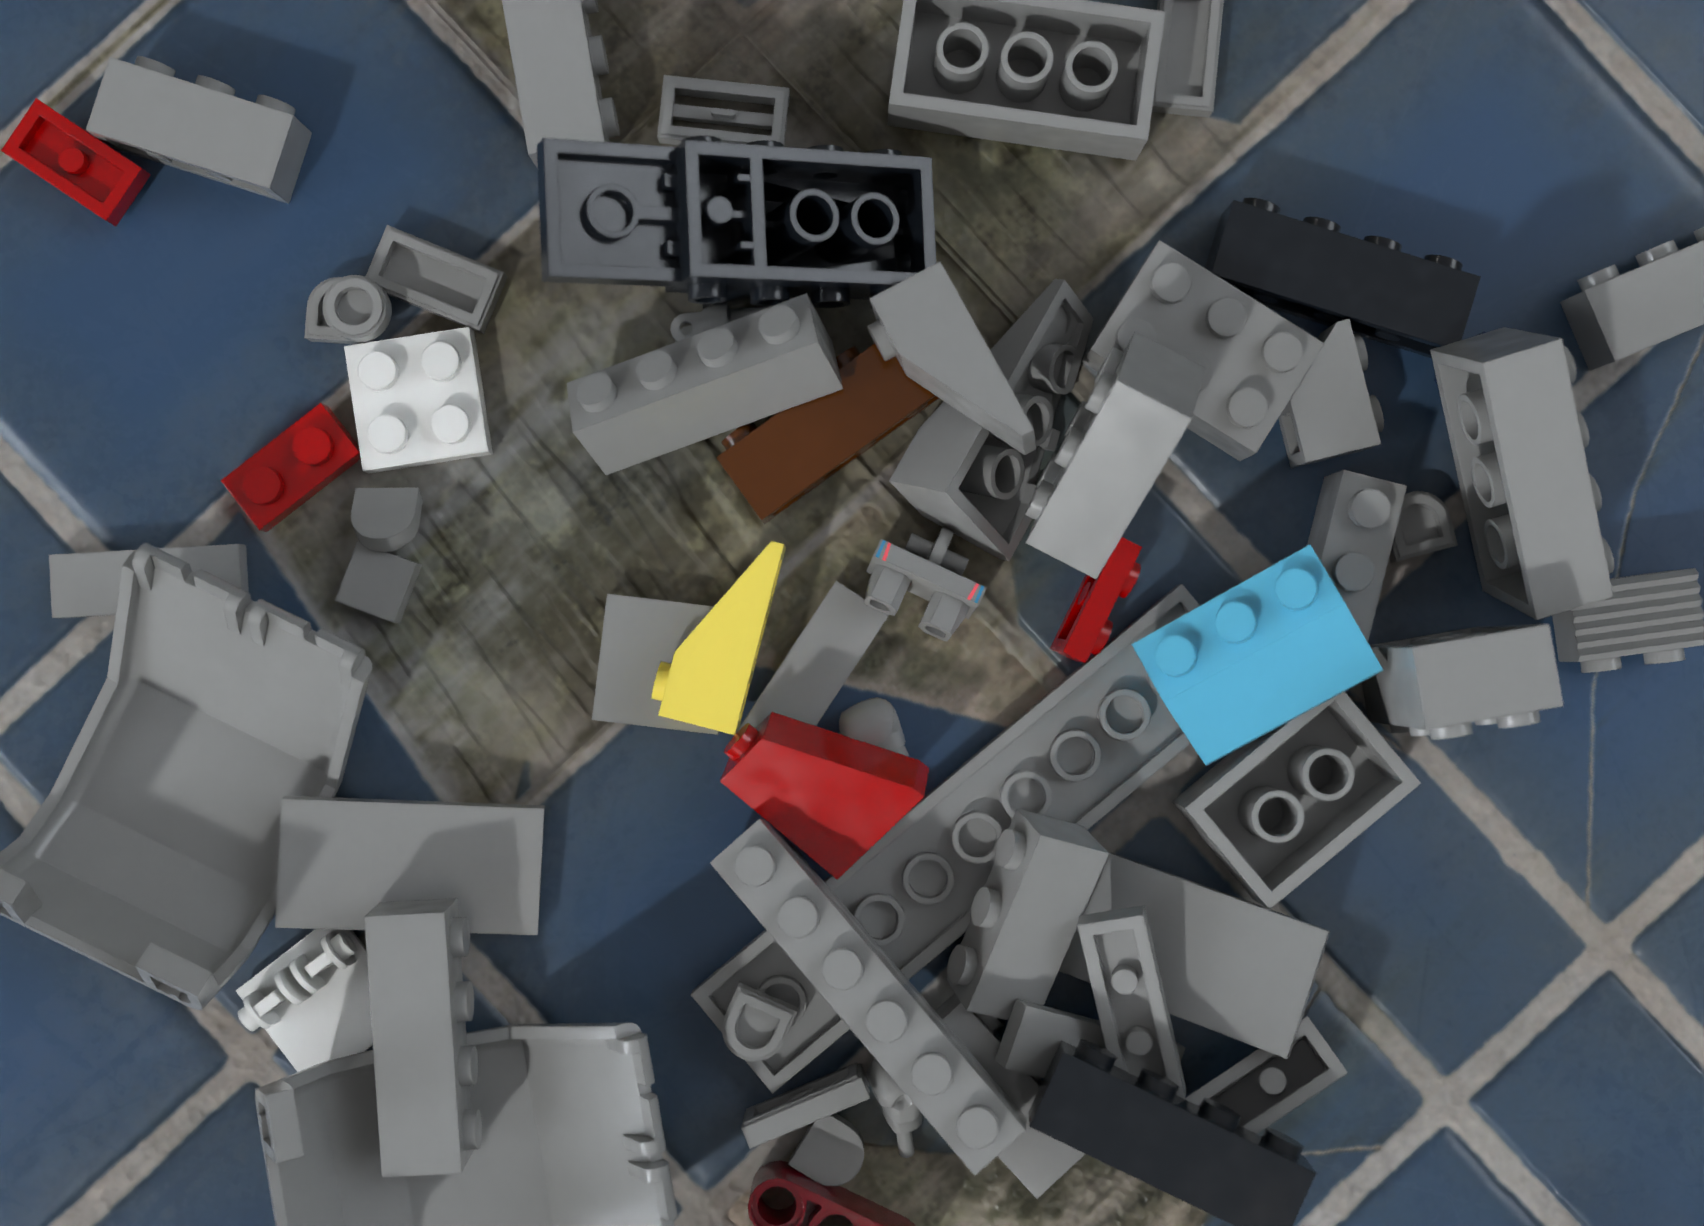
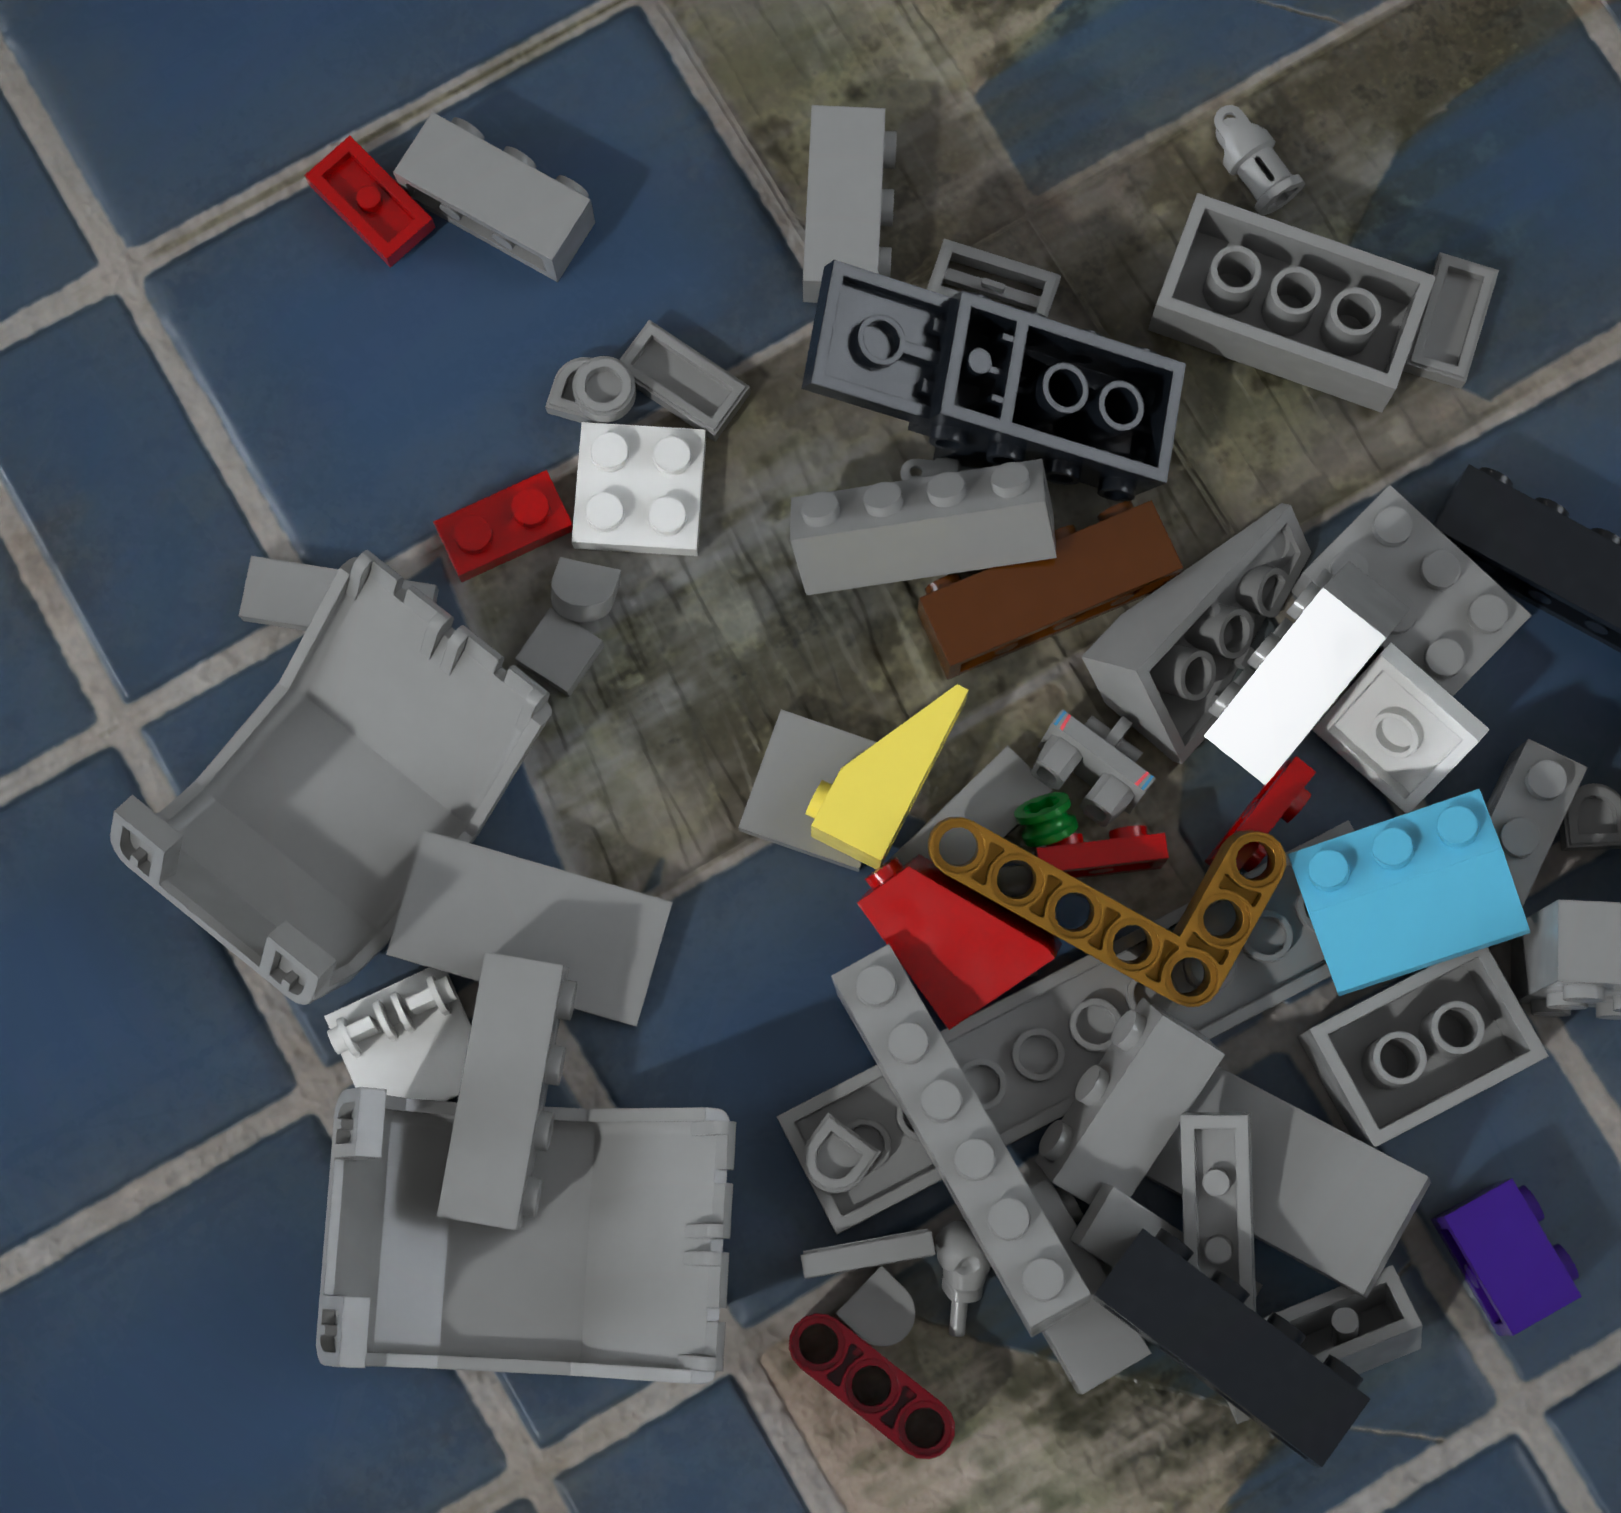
camera: 15 degrees right, 10 degrees down
(888, 650) = (1046, 819): none -> green bush
(945, 353) = (1163, 543): light grey slope -> none
(972, 660) = (1124, 852): none -> red plate
(972, 737) = (1109, 916): none -> pearl gold beam
(1222, 486) = (1400, 729): none -> white plate
(1332, 404) = (1526, 681): light grey slope -> none
(1411, 971) = (1508, 1256): none -> dark purple brick

